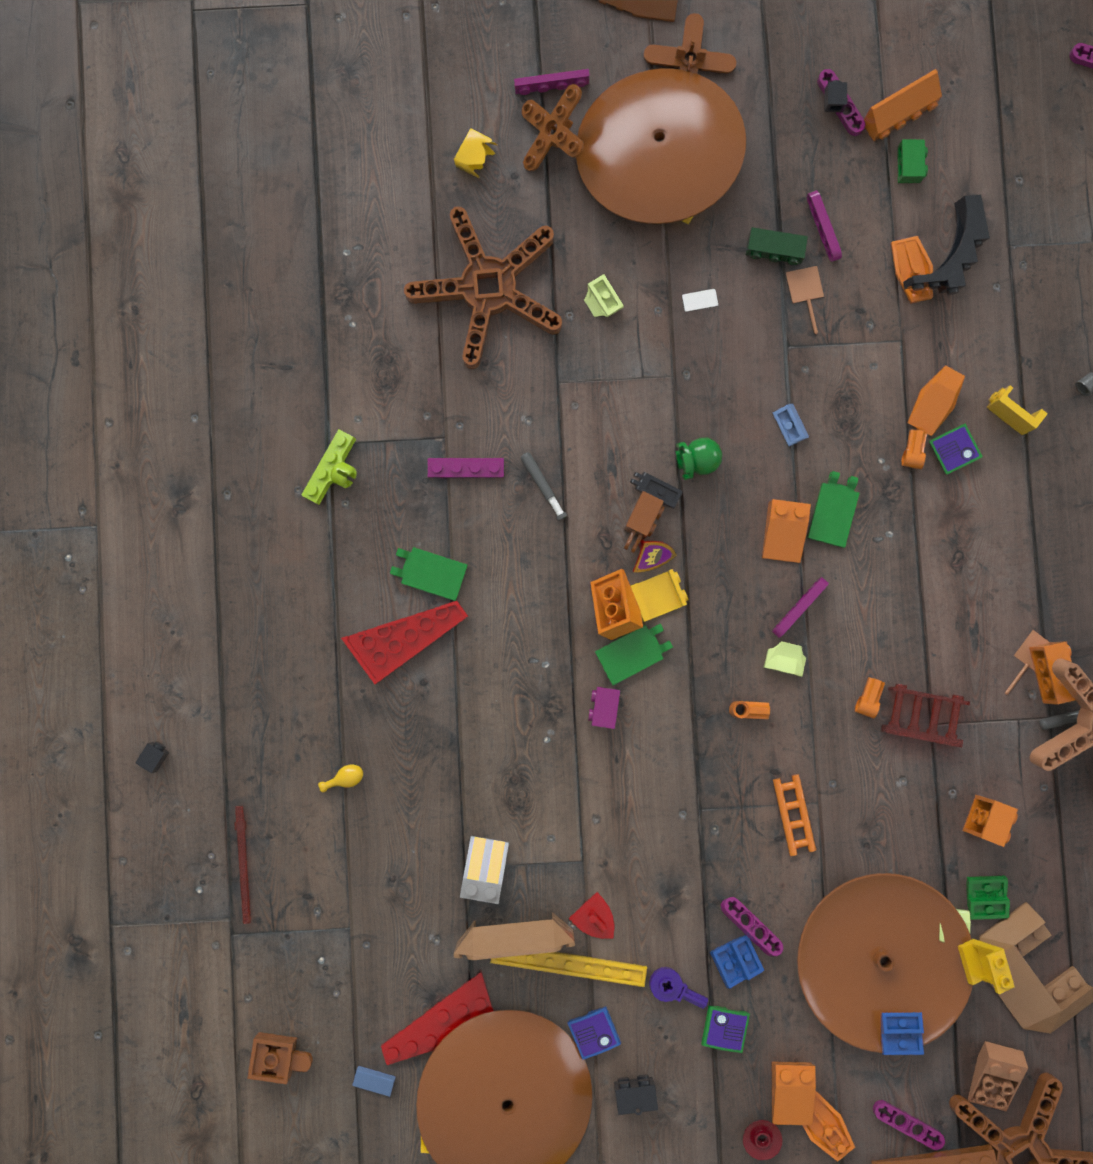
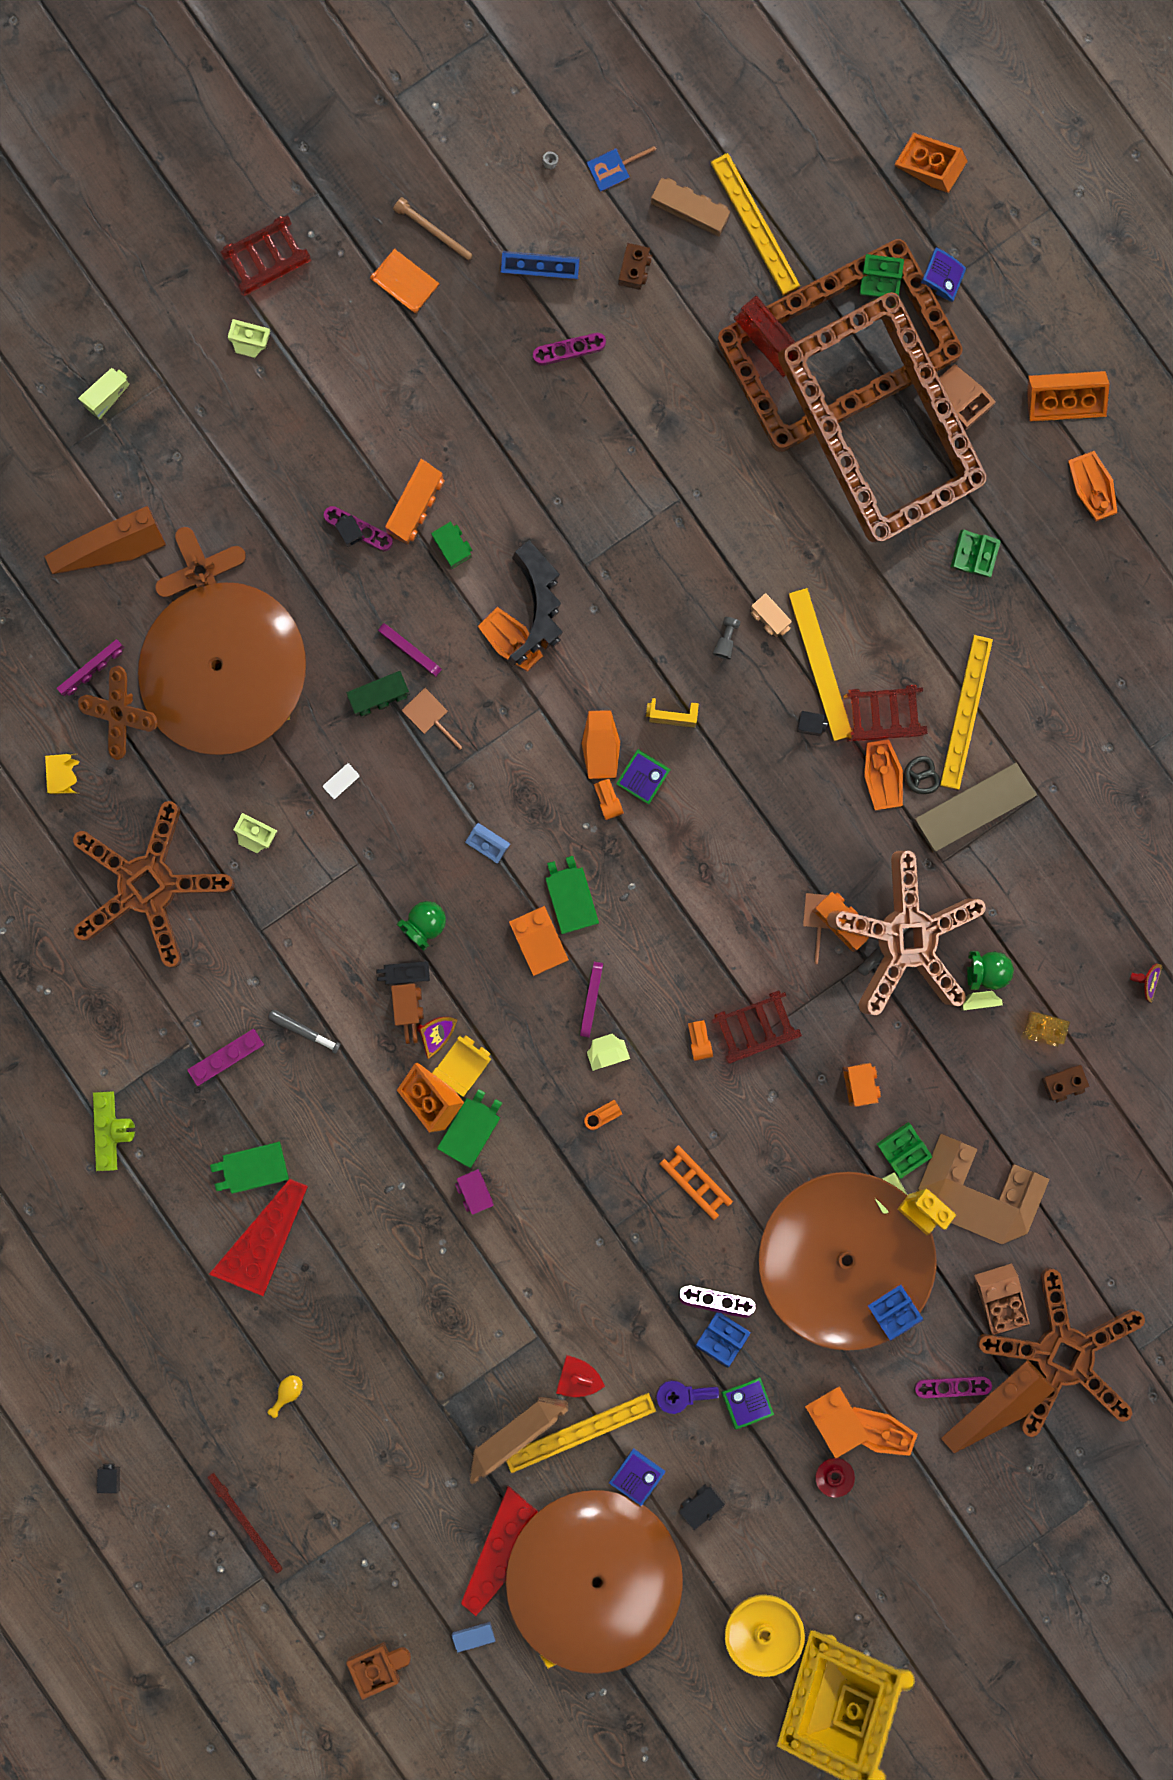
camera: 30 degrees left, 0 degrees up
(484, 870) = (457, 1396): slope -> none

